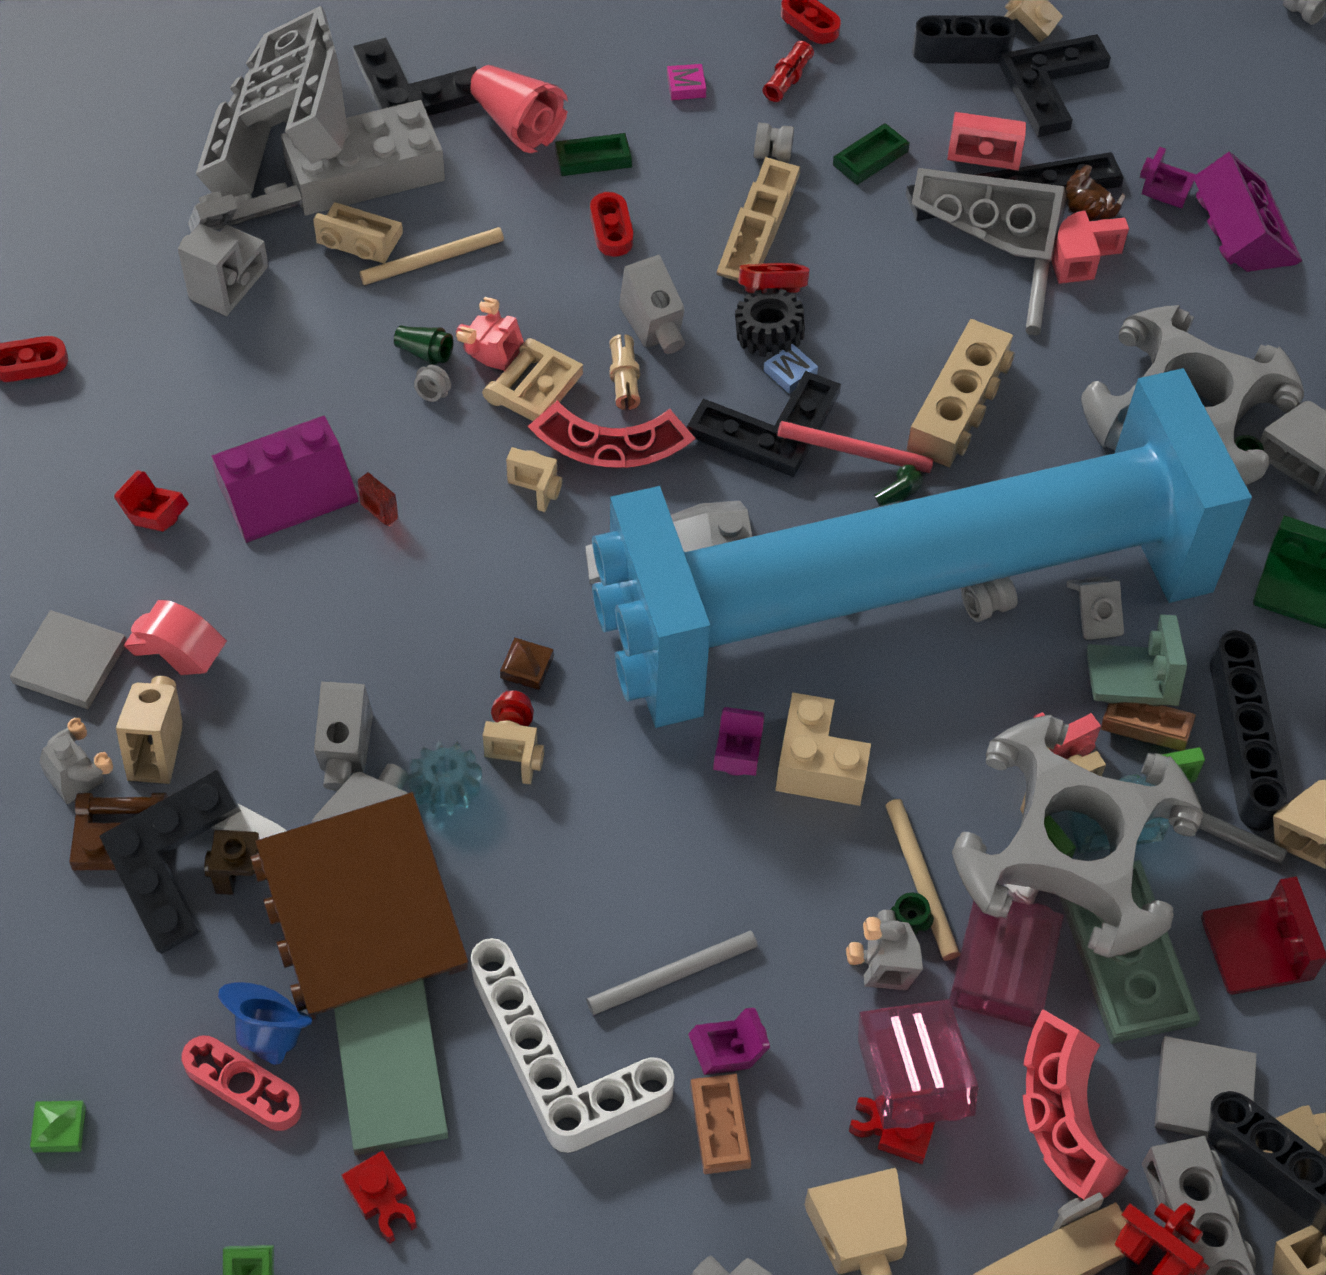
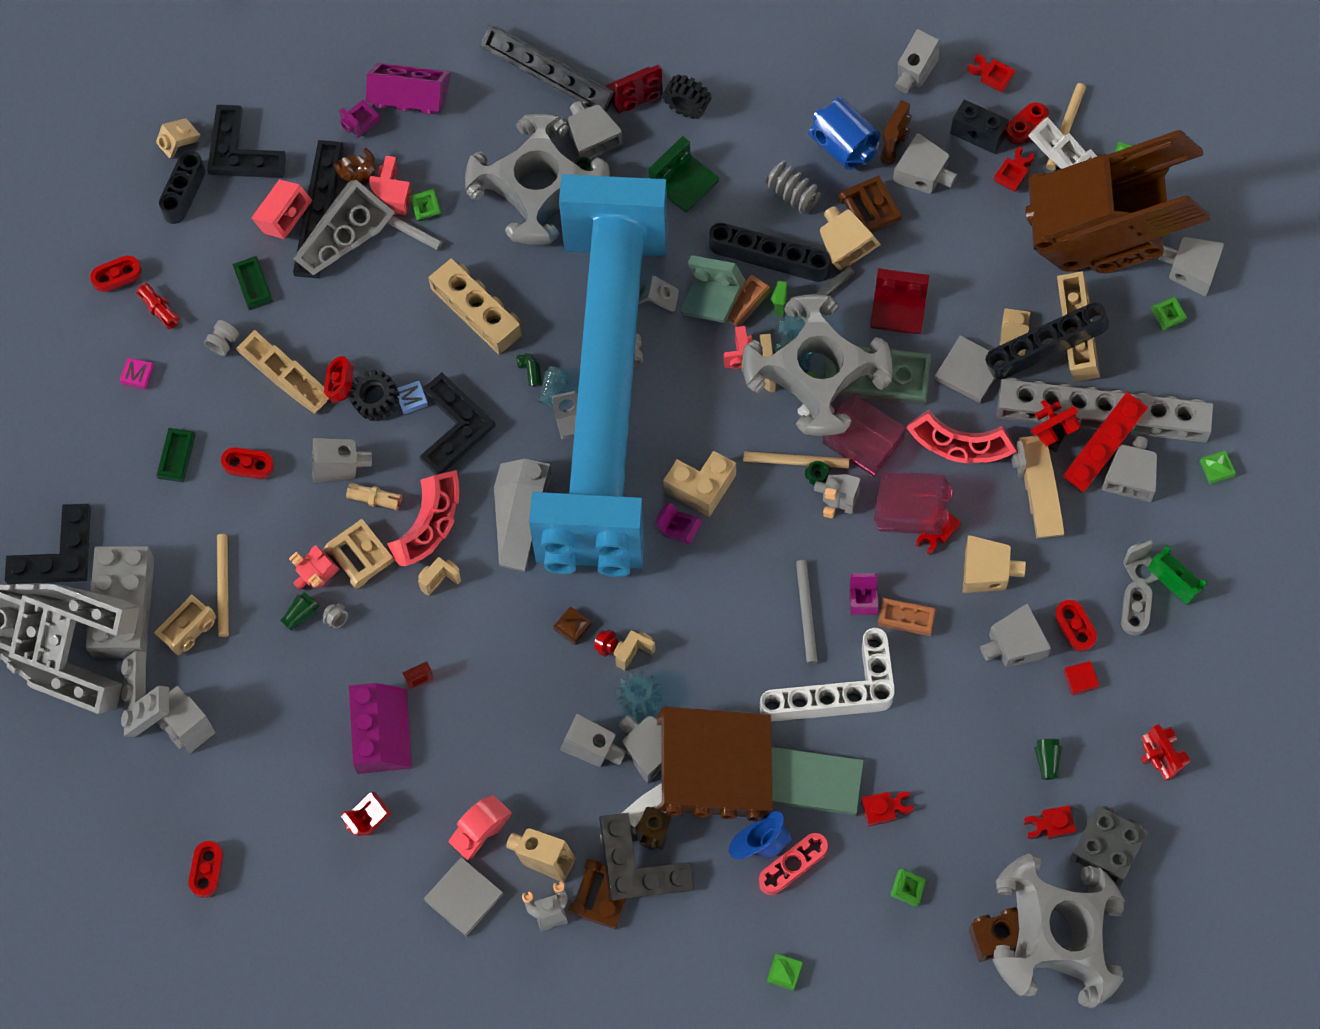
camera: 65 degrees left, 10 degrees up
(520, 105) = (119, 487): coral cone -> none
(854, 446) = (493, 381): coral bar -> none
(1083, 292) = (425, 204): none -> bright green tile

